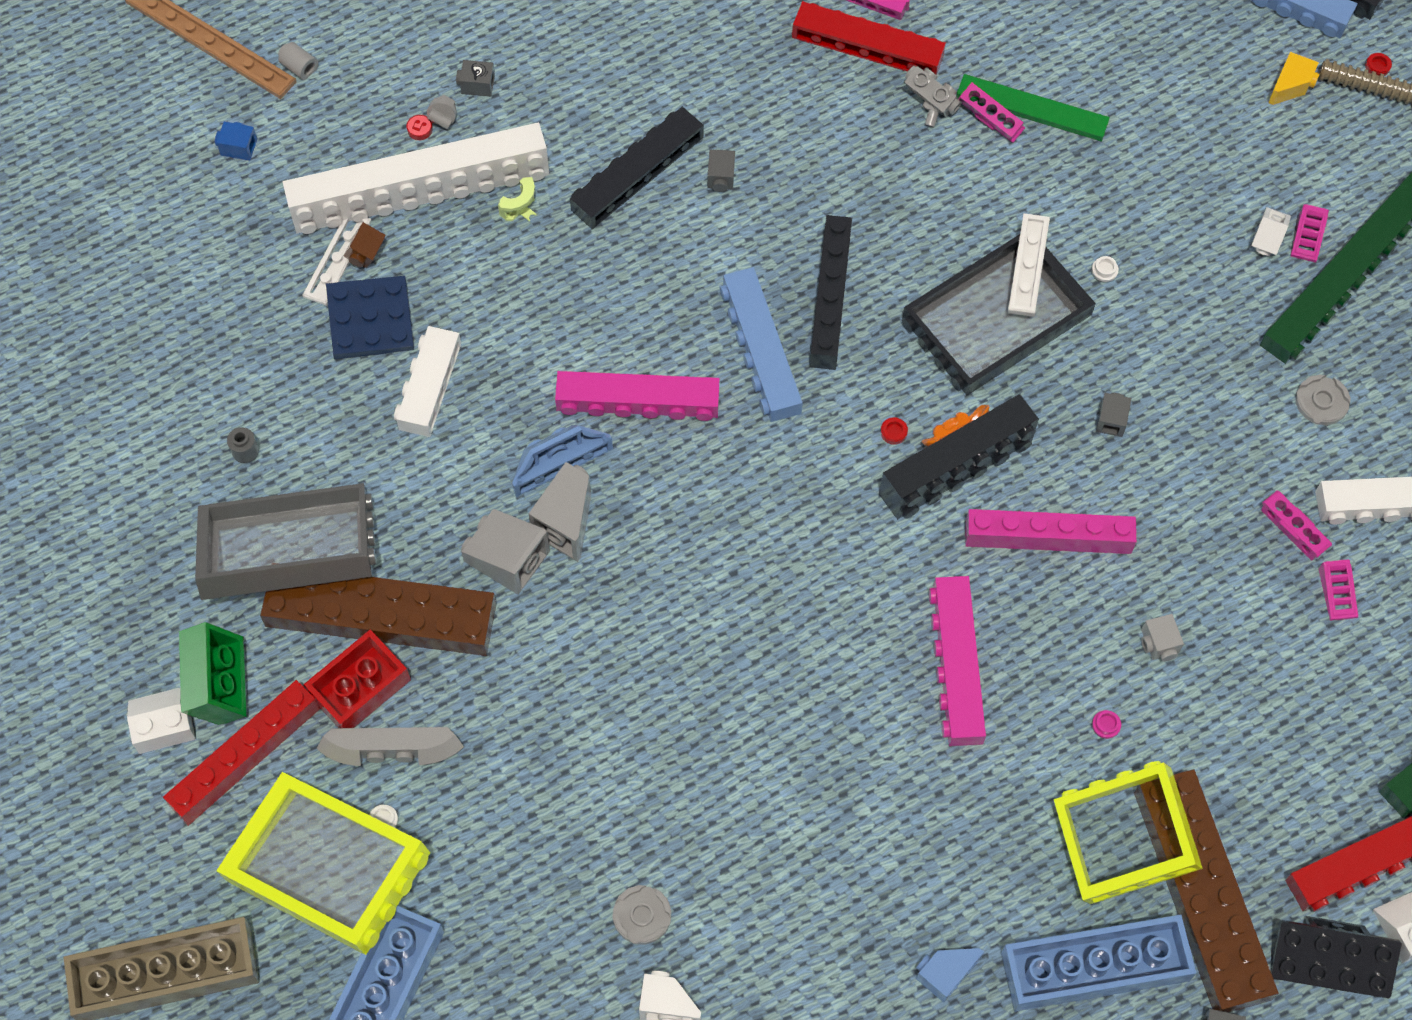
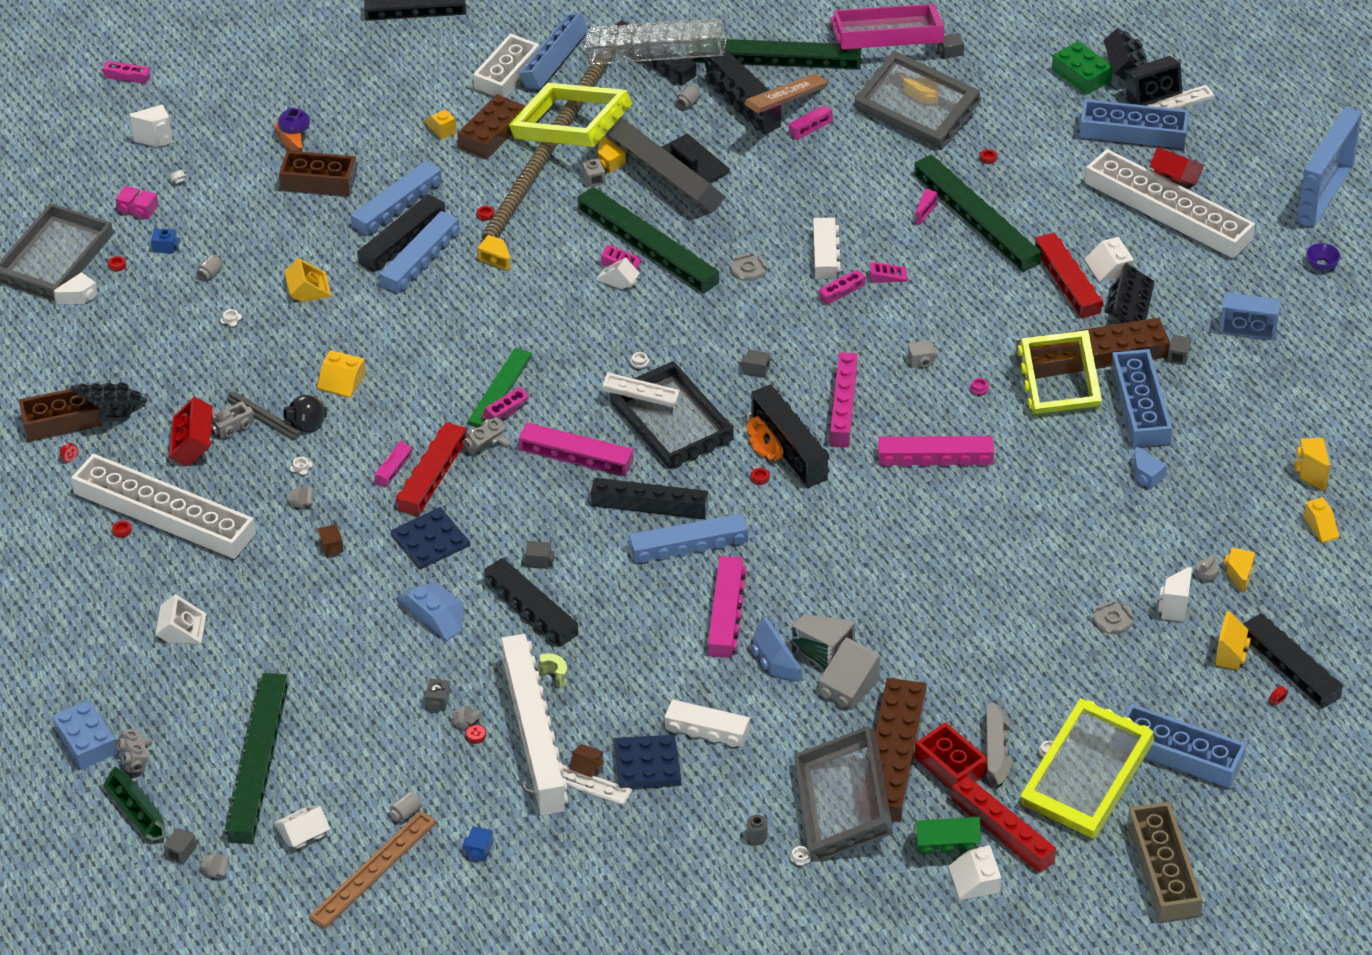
camera: 85 degrees left, 20 degrees down
(204, 496) = (800, 851): none -> white plate
(624, 63) = (435, 608): none -> medium blue wedge
(750, 52) = (430, 538): none -> dark blue plate
(919, 201) = (576, 449): none -> dark pink brick

